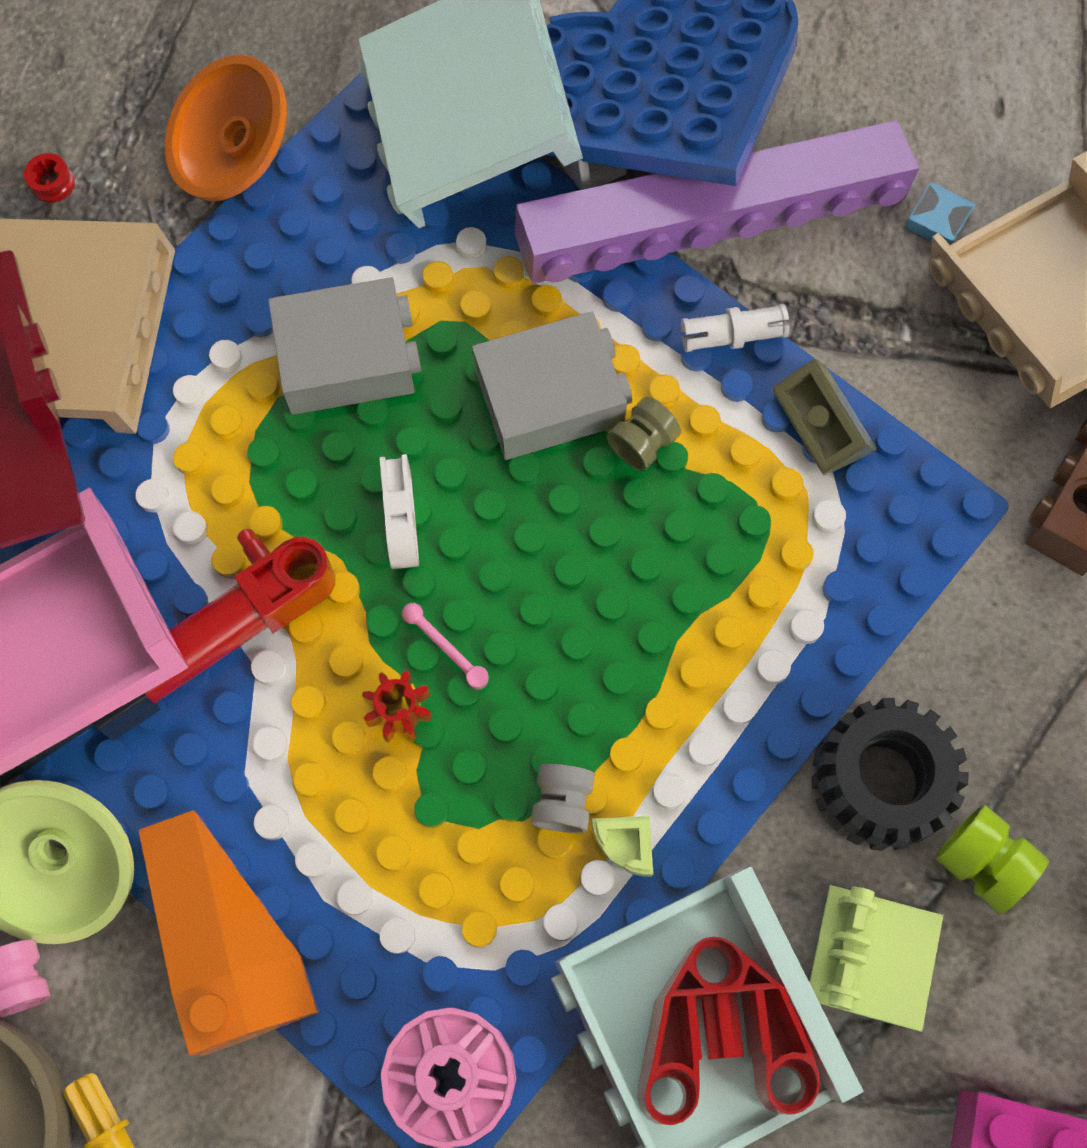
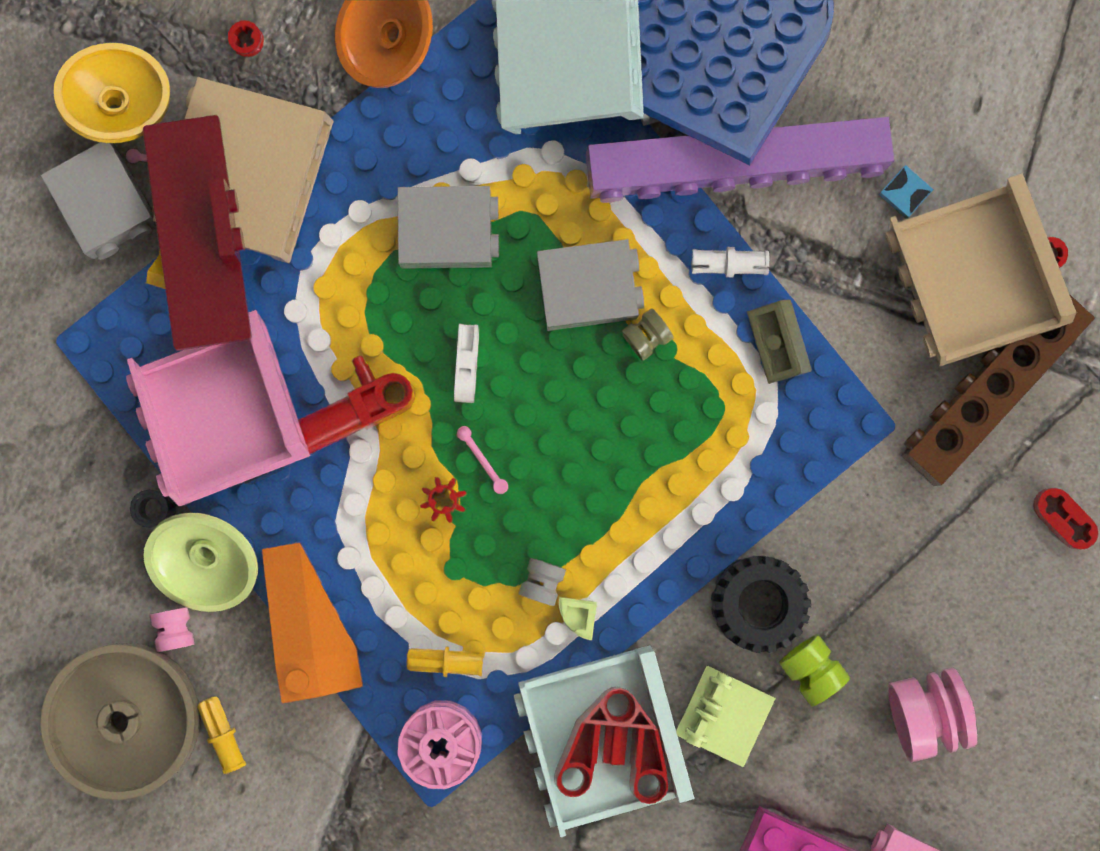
camera: 10 degrees right, 15 degrees up
(437, 948) = (445, 661): none -> yellow axle

